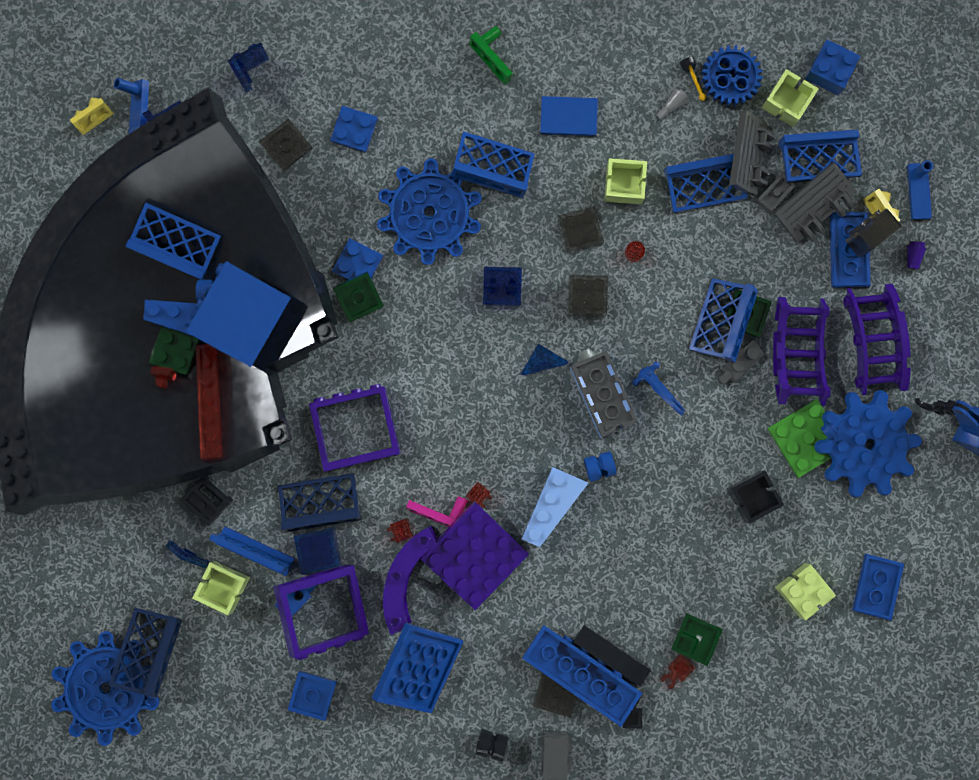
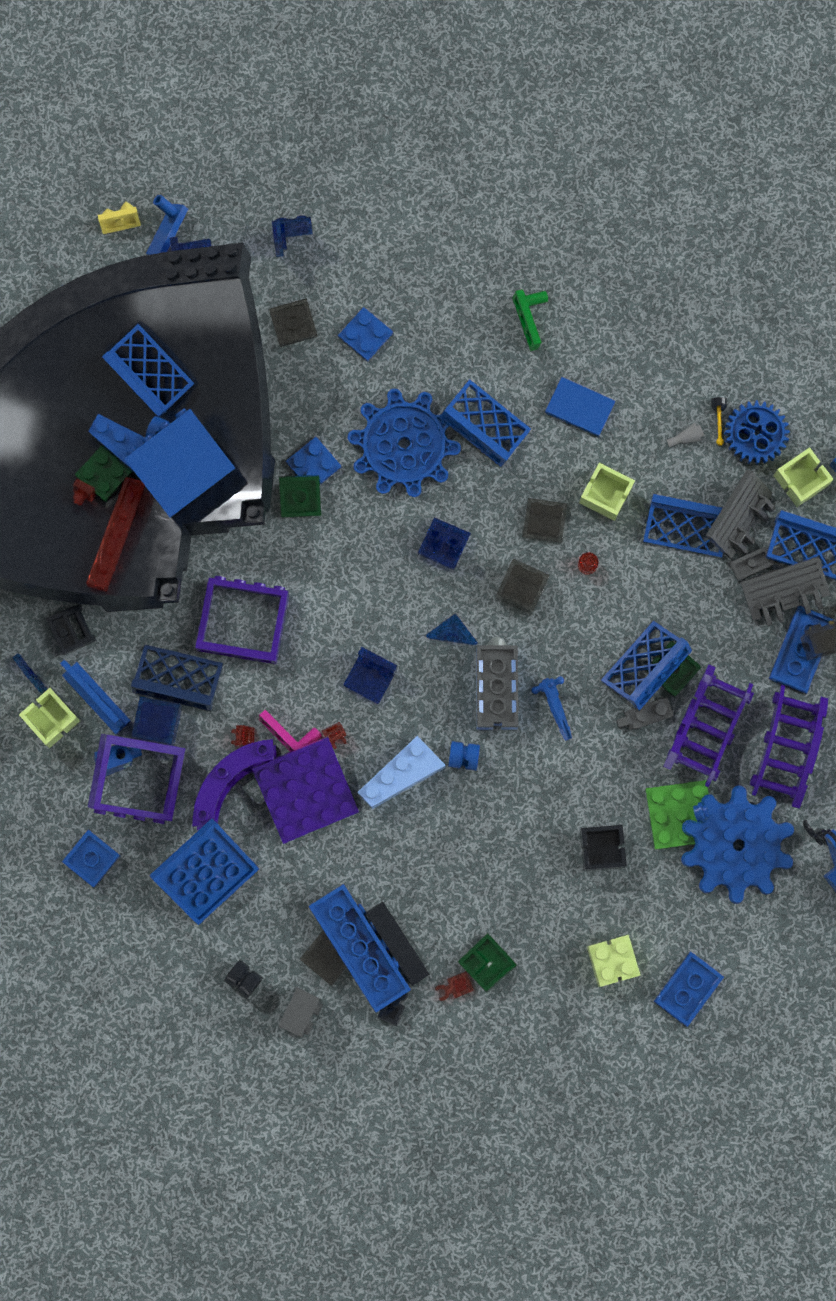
camera: 20 degrees right, 5 degrees down
(488, 430) = (370, 675): none -> clear blue bracket

